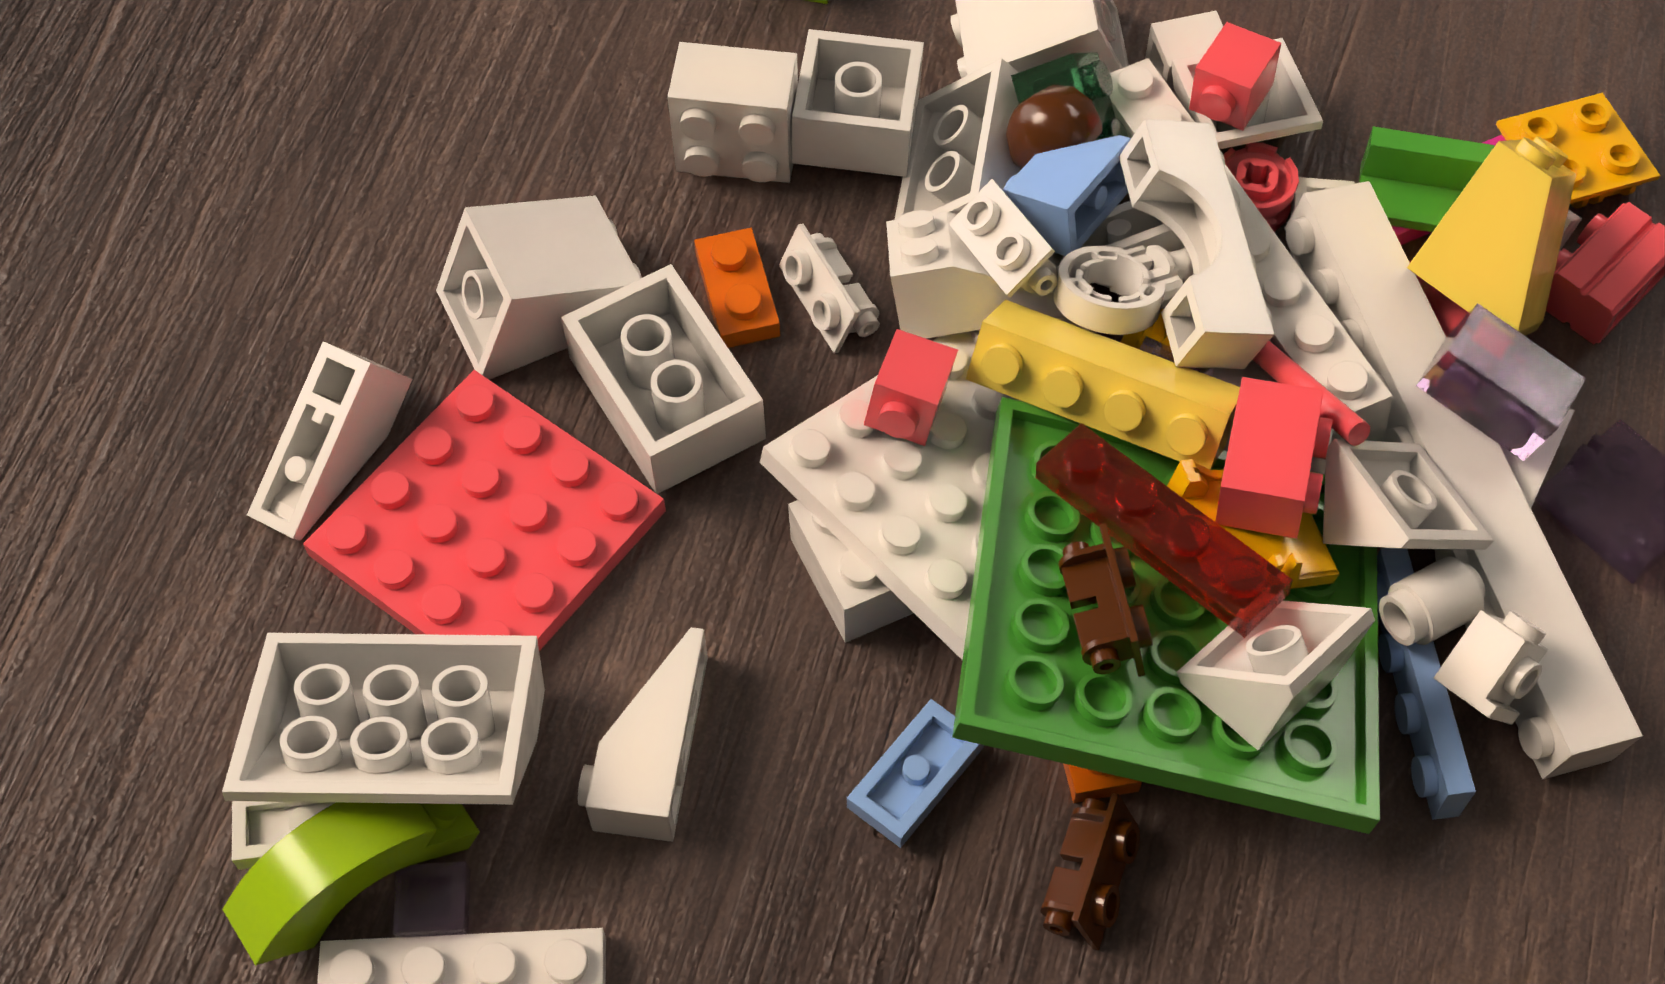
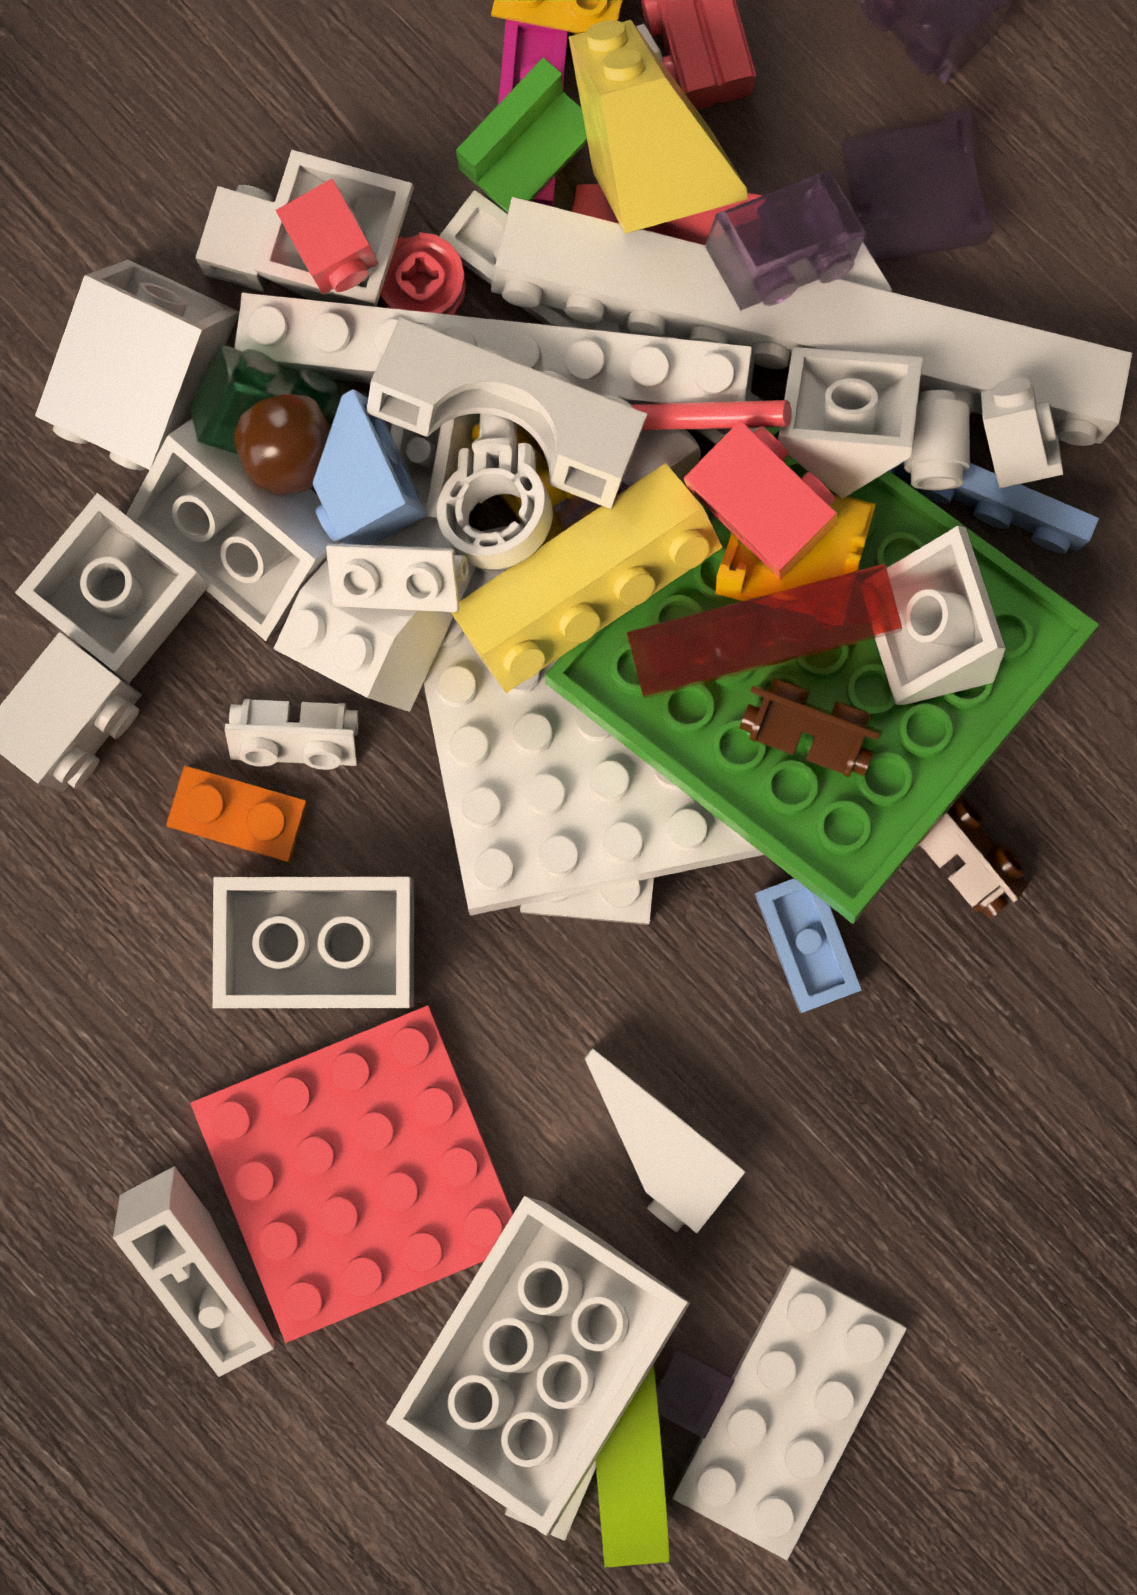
camera: 60 degrees left, 25 degrees up
(522, 271) = (133, 997): white slope -> none
(910, 387) = (493, 750): coral brick -> none

